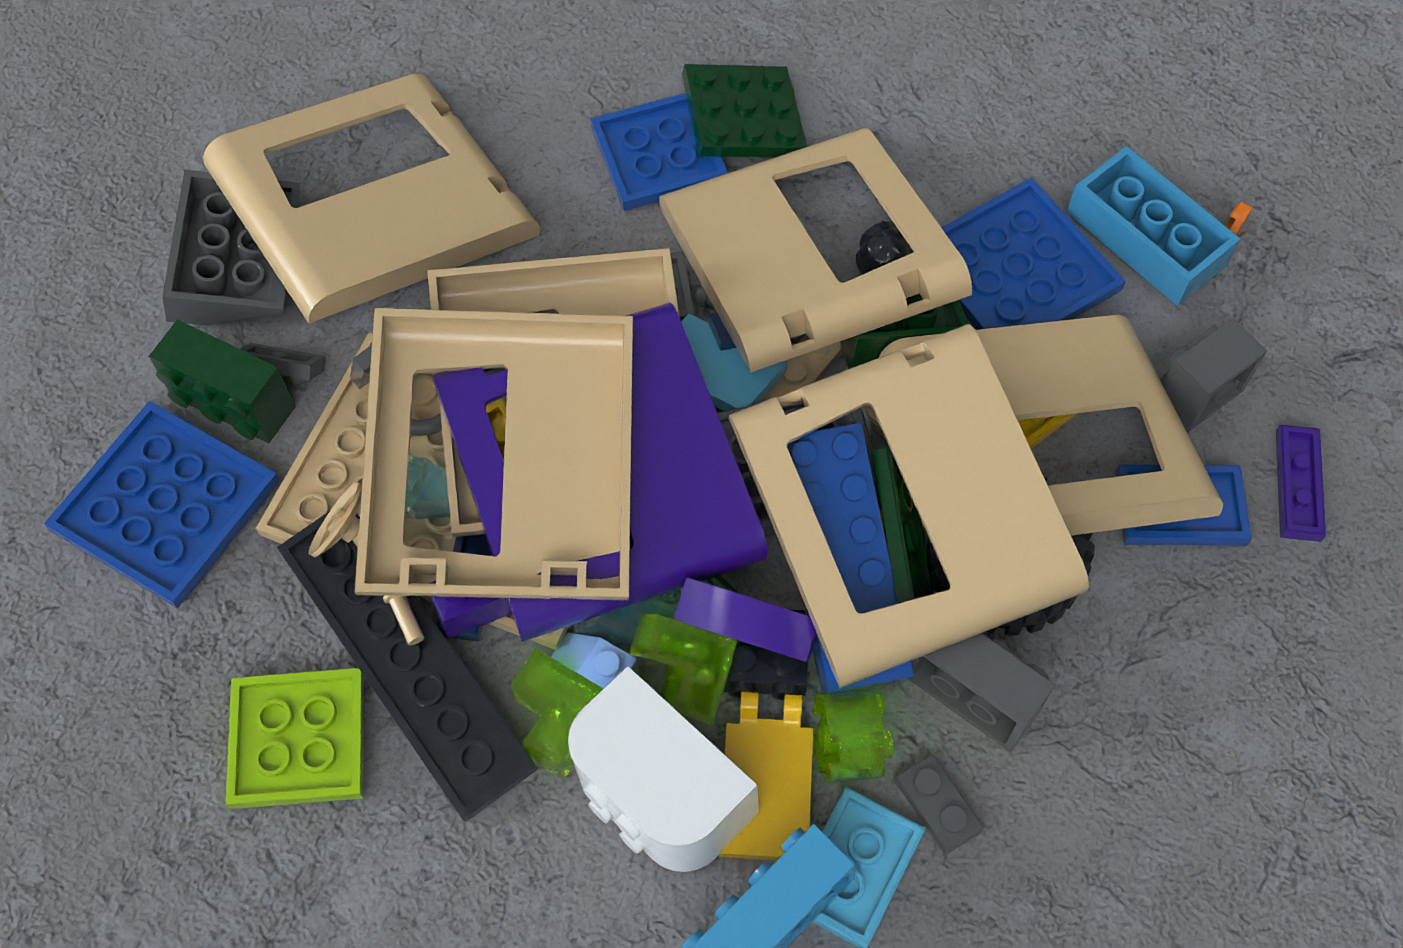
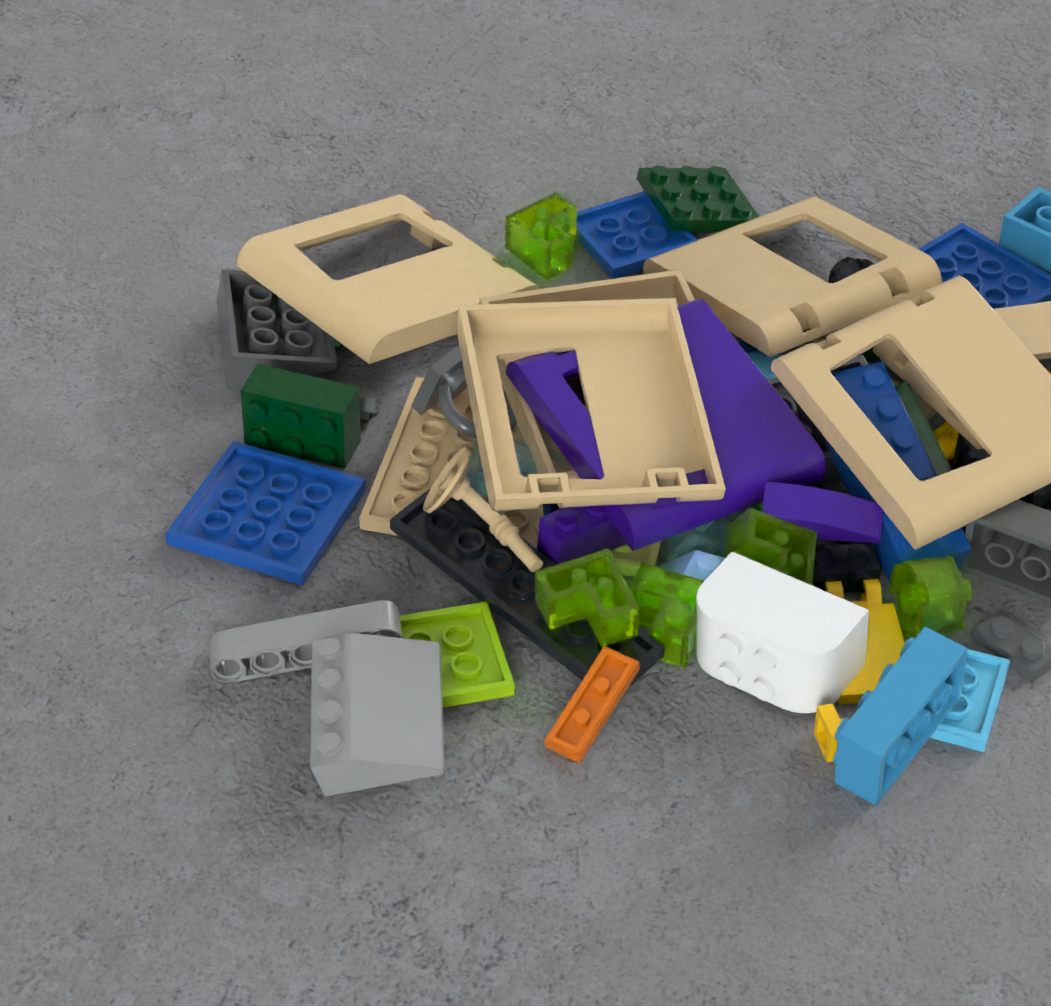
camera: 10 degrees left, 20 degrees down
(148, 703) = (287, 642): none -> light grey beam
(192, 819) = (375, 711): none -> light grey slope
(437, 833) = (592, 704): none -> orange tile
(455, 692) = (590, 590): none -> clear neon green brick
(554, 142) = (543, 235): none -> clear neon green brick
(694, 909) = (825, 729): none -> yellow plate

